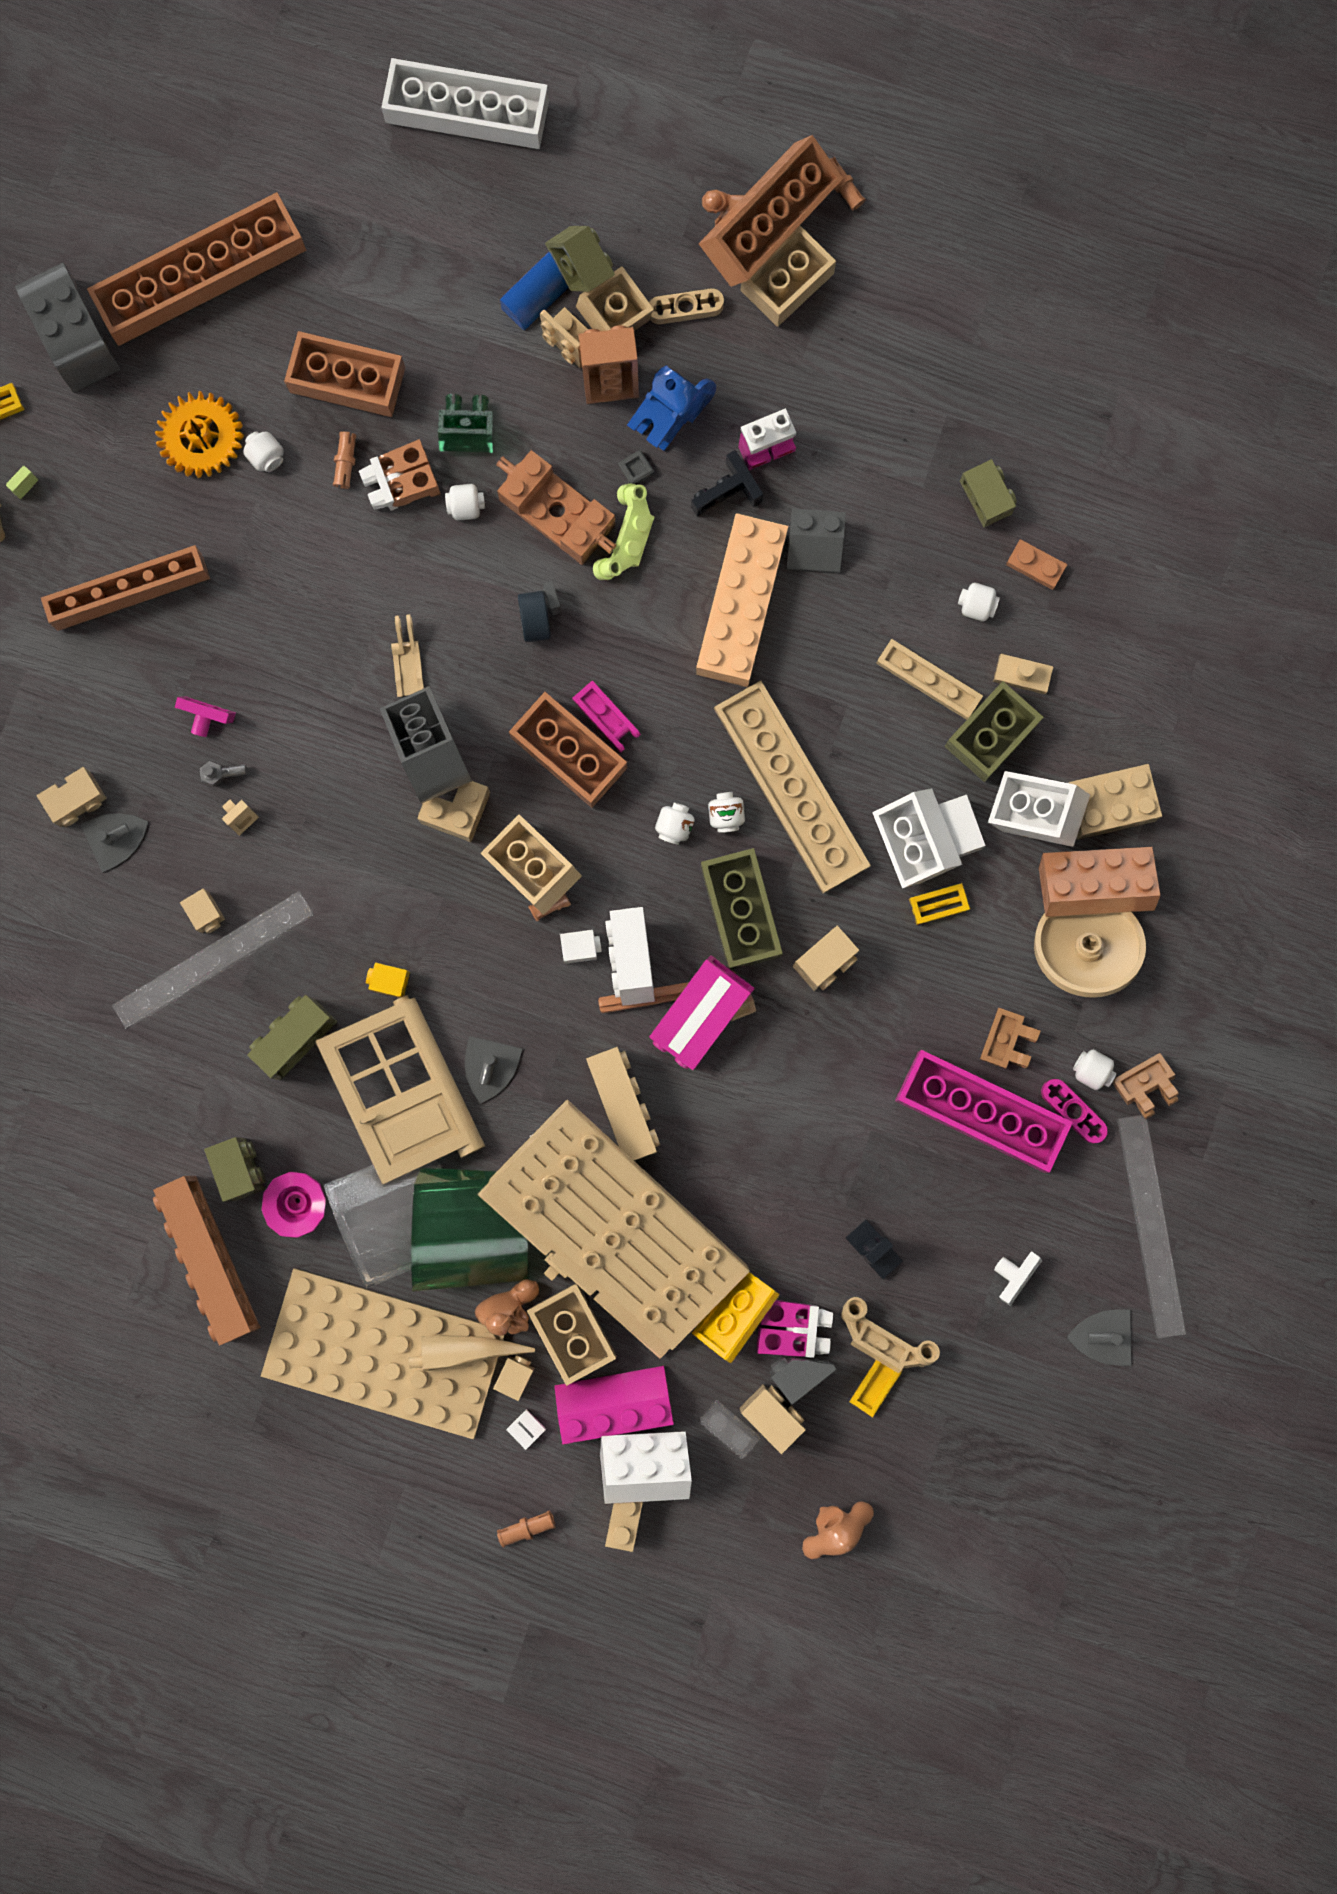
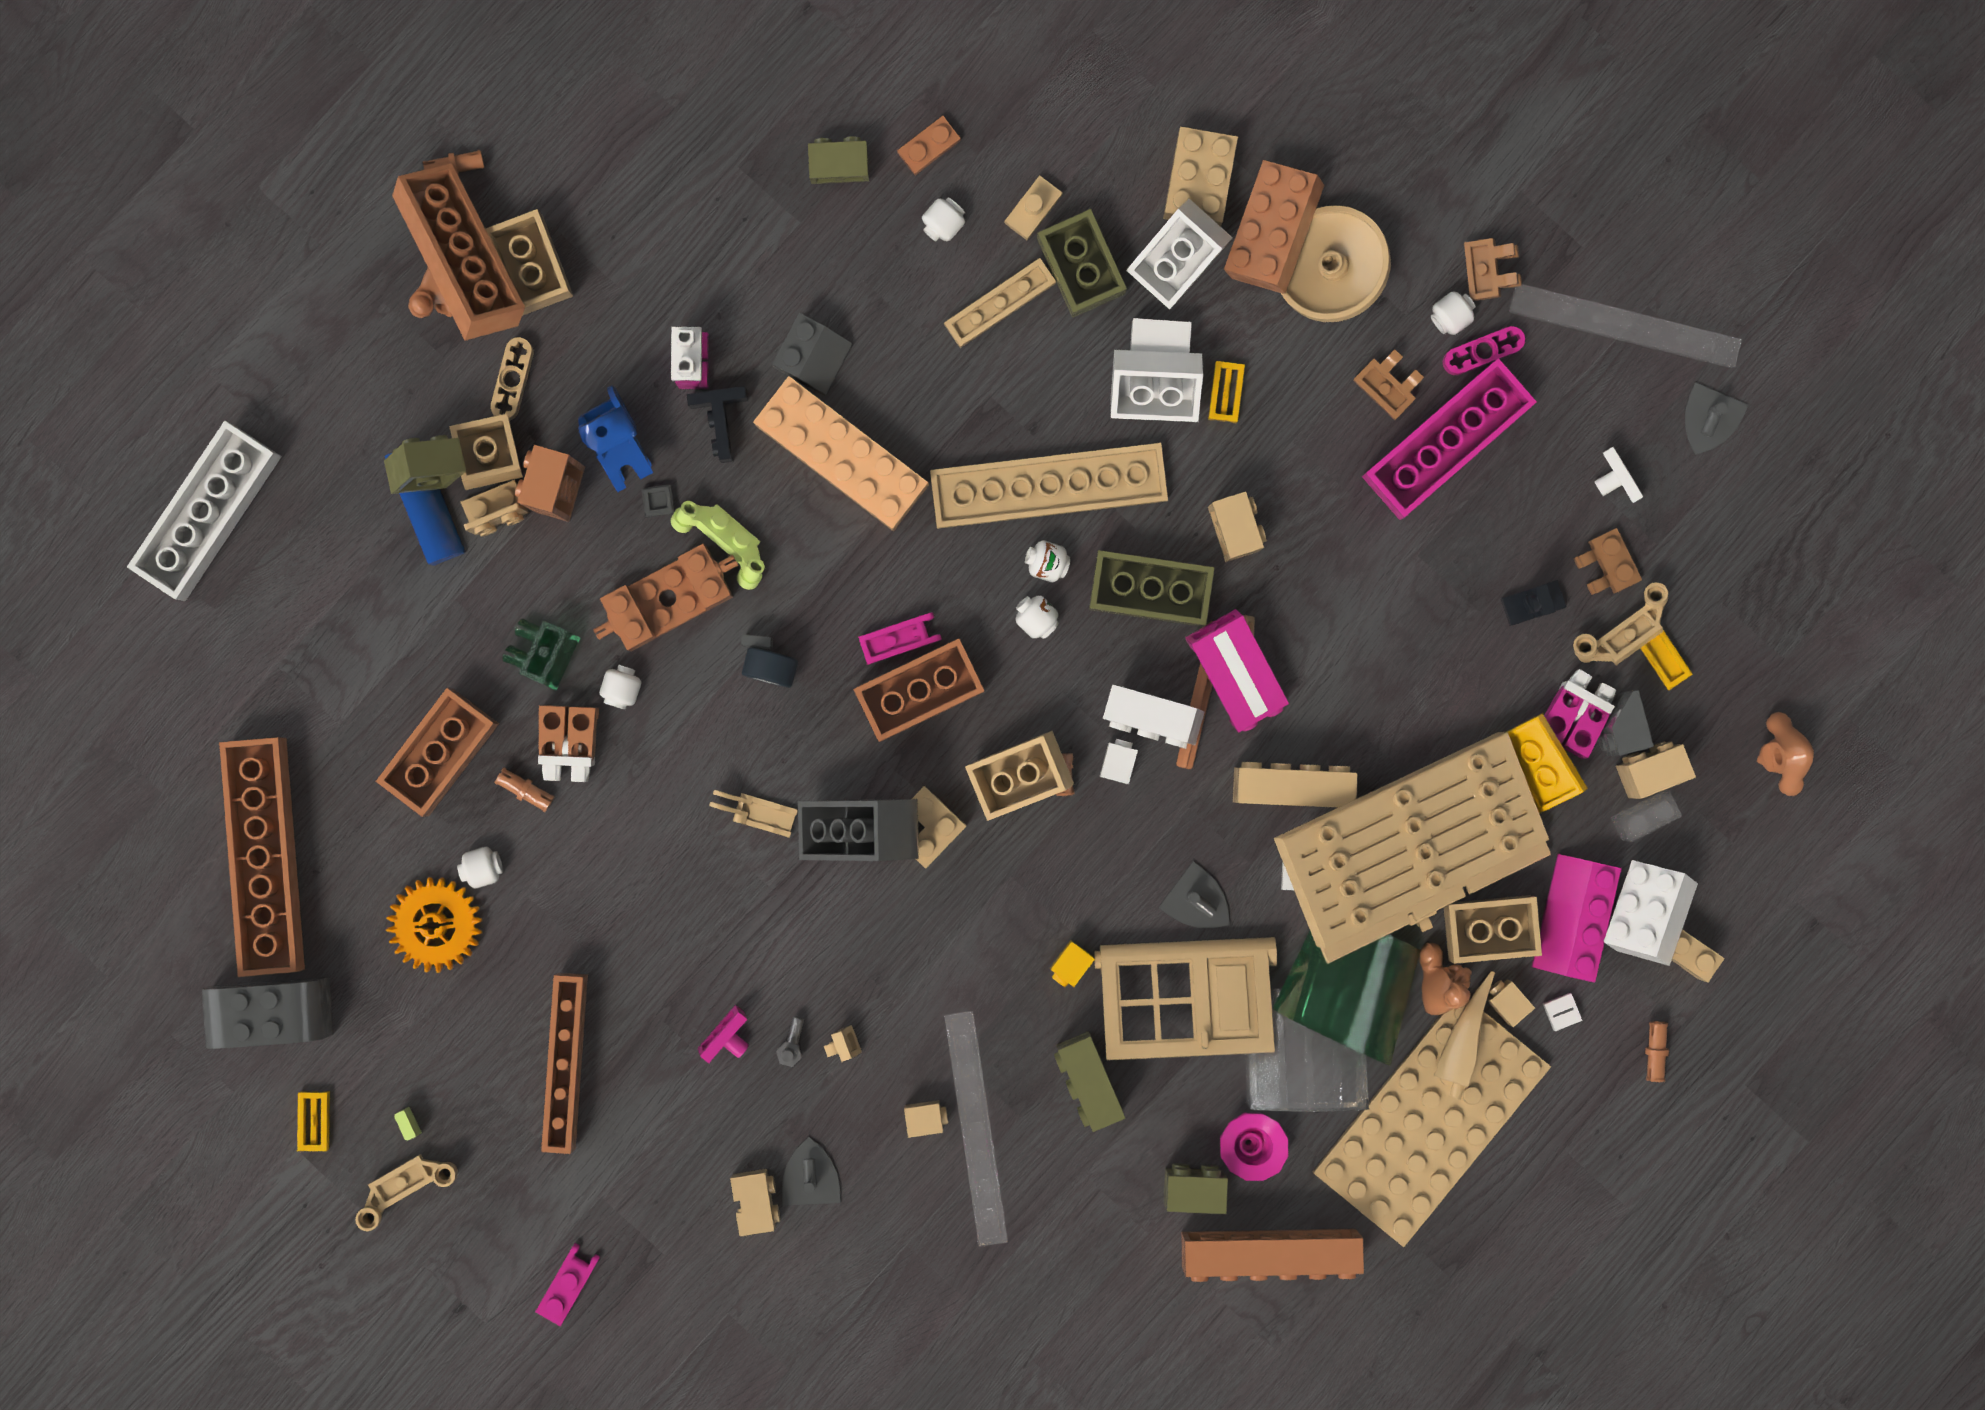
camera: 70 degrees left, 5 degrees up
(941, 1305) = (1614, 561): none -> medium nougat plate

